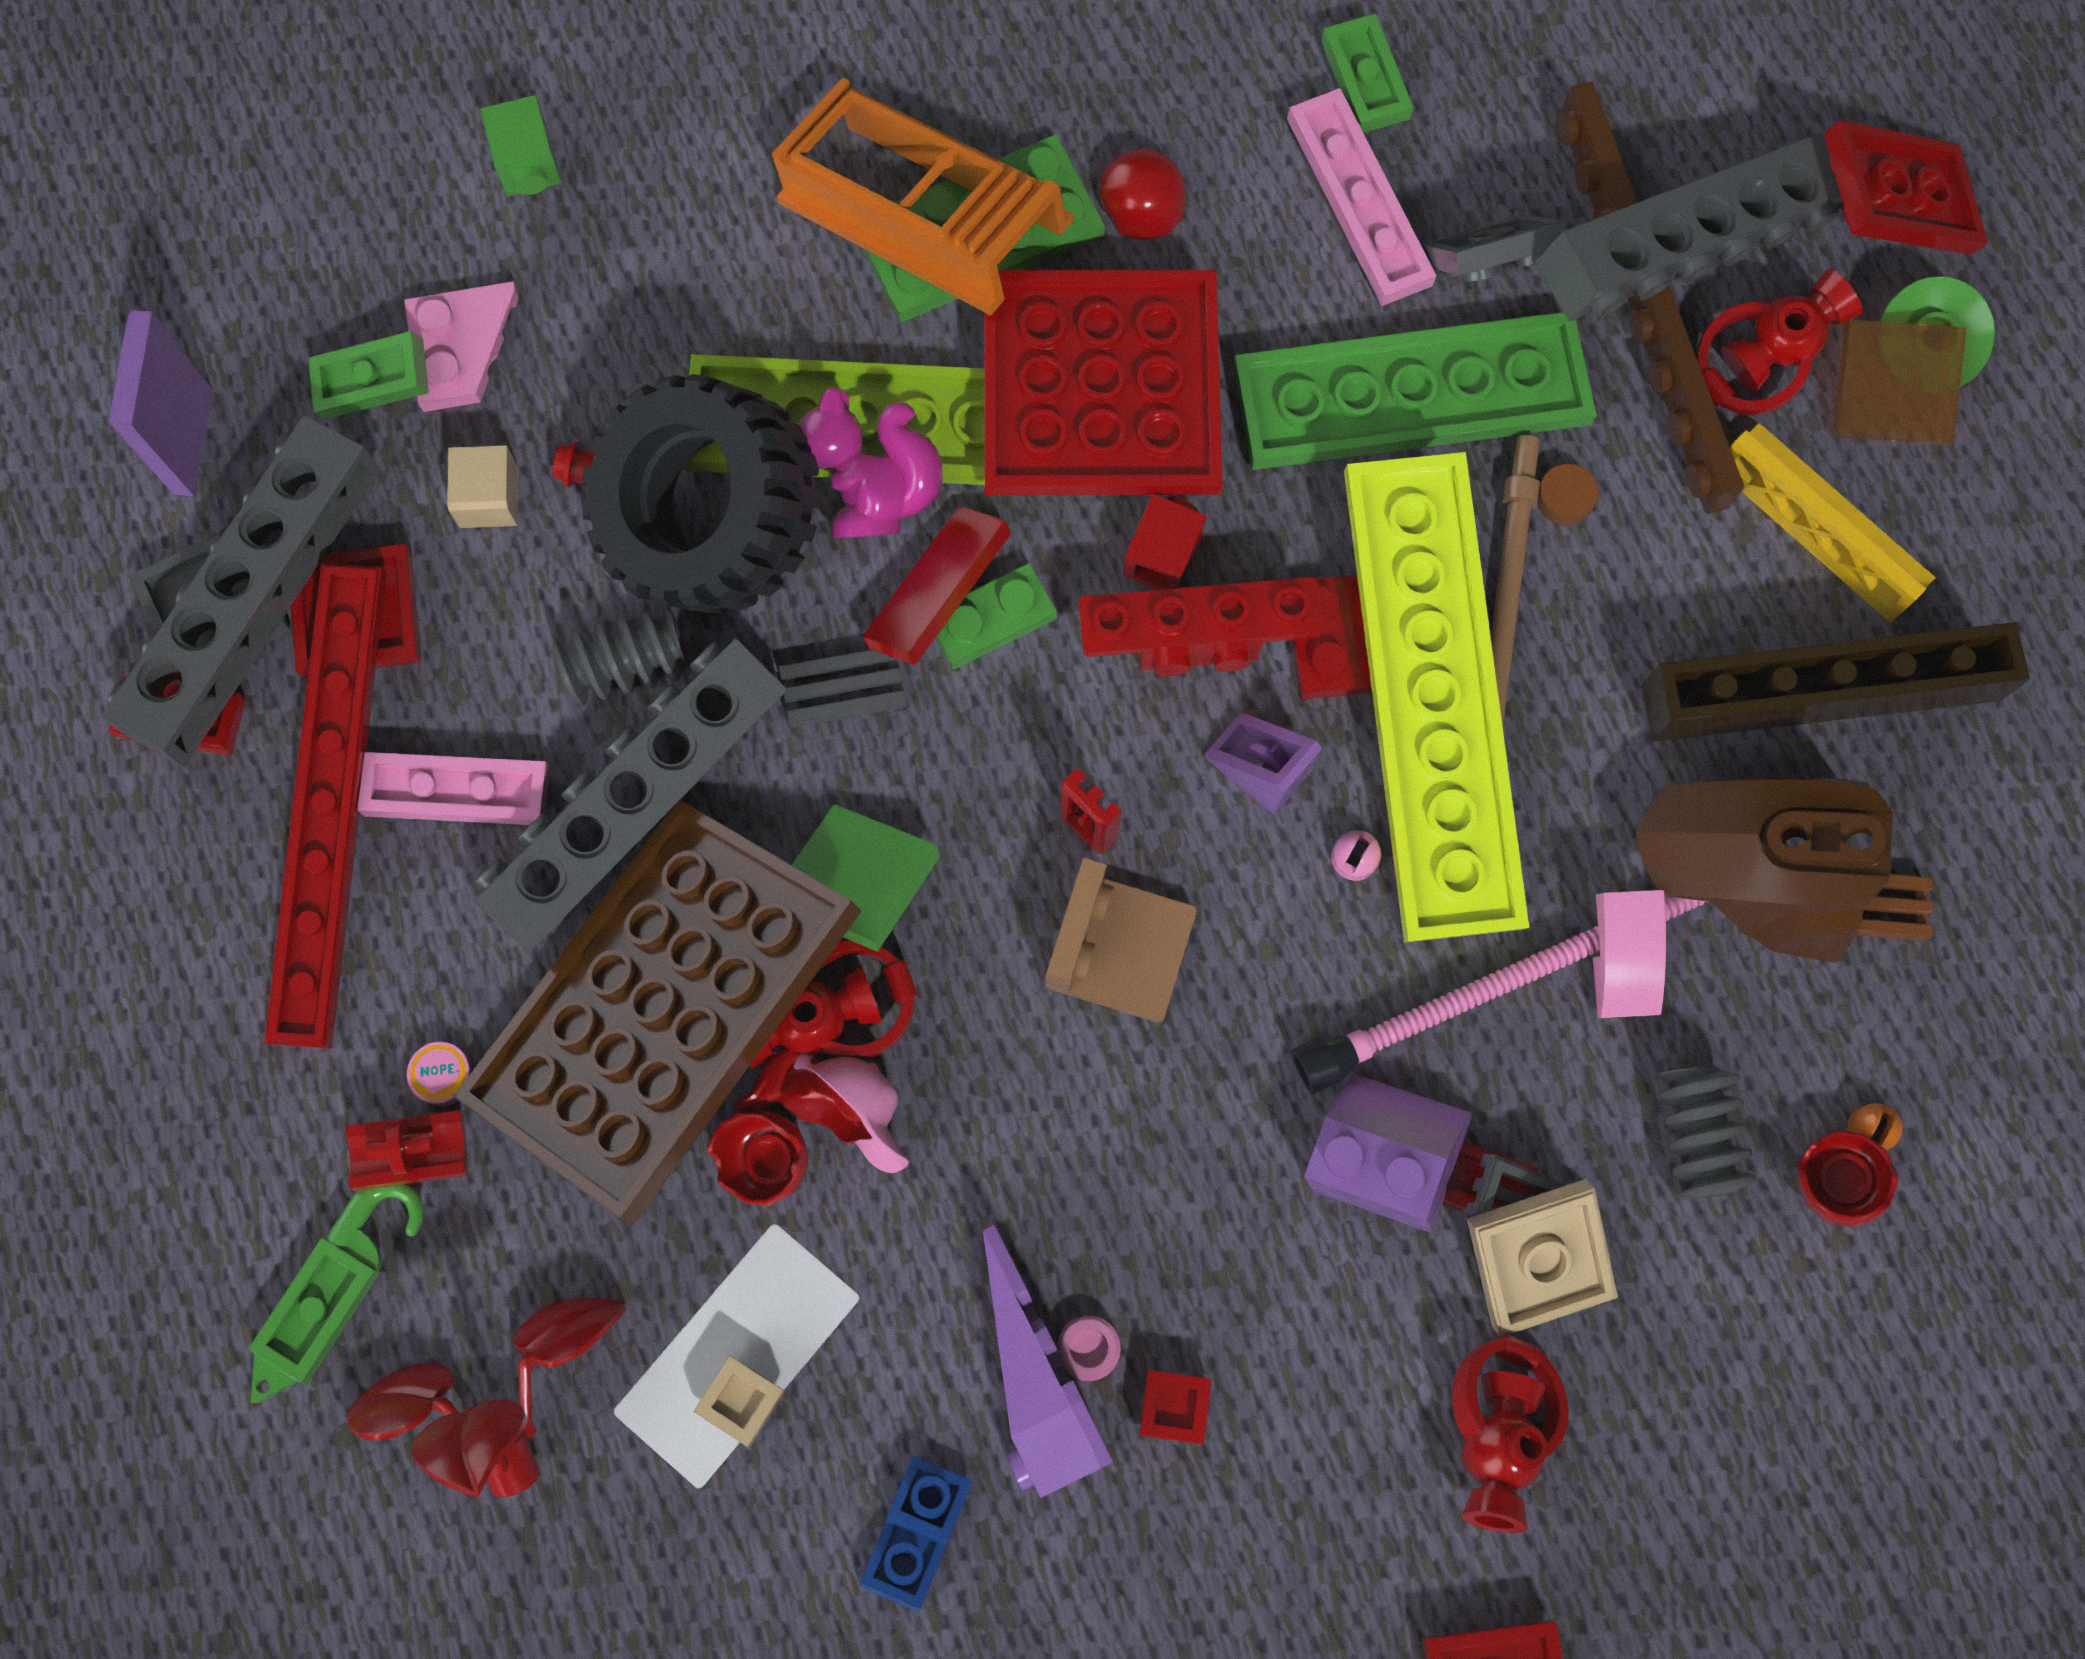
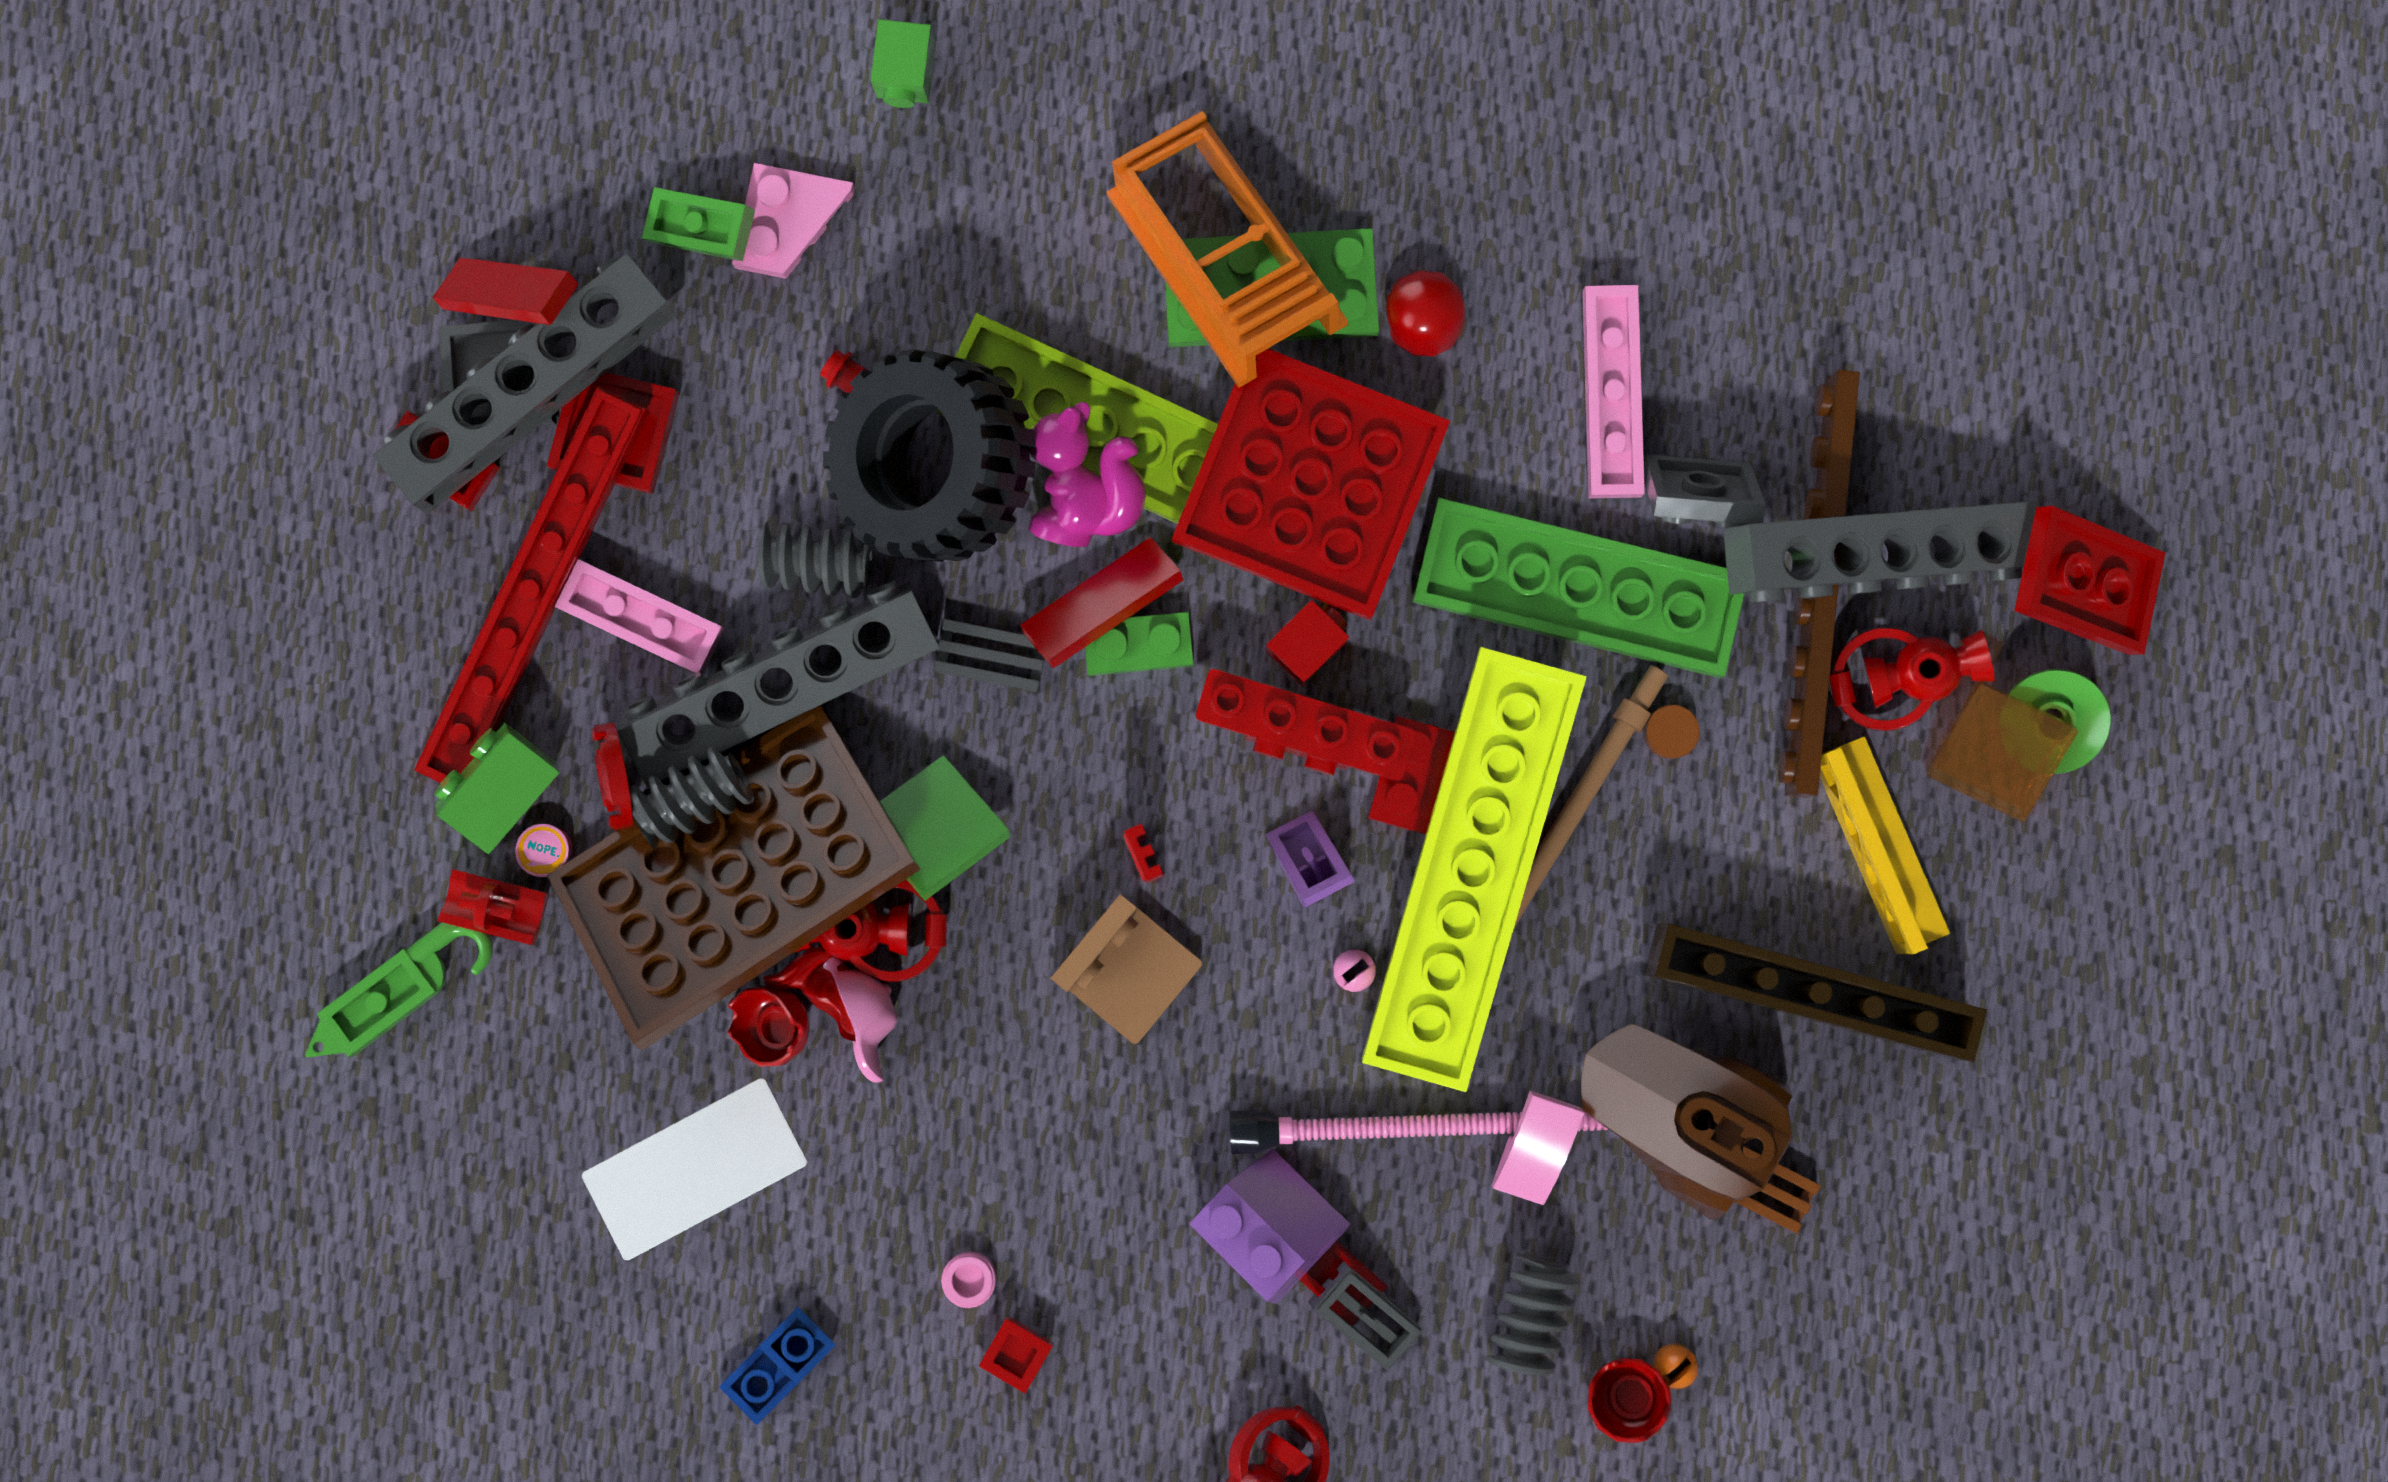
camera: 25 degrees right, 10 degrees up
(160, 403) = (512, 195): medium lavender tile -> none
(188, 506) = (506, 290): none -> red tile
(361, 1021) = (494, 787): none -> bright green brick
(482, 486) = (757, 363): tan piece -> none
(487, 955) = (612, 776): none -> red tile
(493, 1437) = (449, 1178): red plant -> none
(578, 939) = (690, 797): none -> dark grey piece
(739, 1401) = (679, 1210): tan plate -> none
(1044, 1408) = (912, 1321): medium lavender wedge -> none
(1367, 72) = (1669, 278): bright green plate -> none
(1542, 1257) = (1355, 1361): tan tile -> none

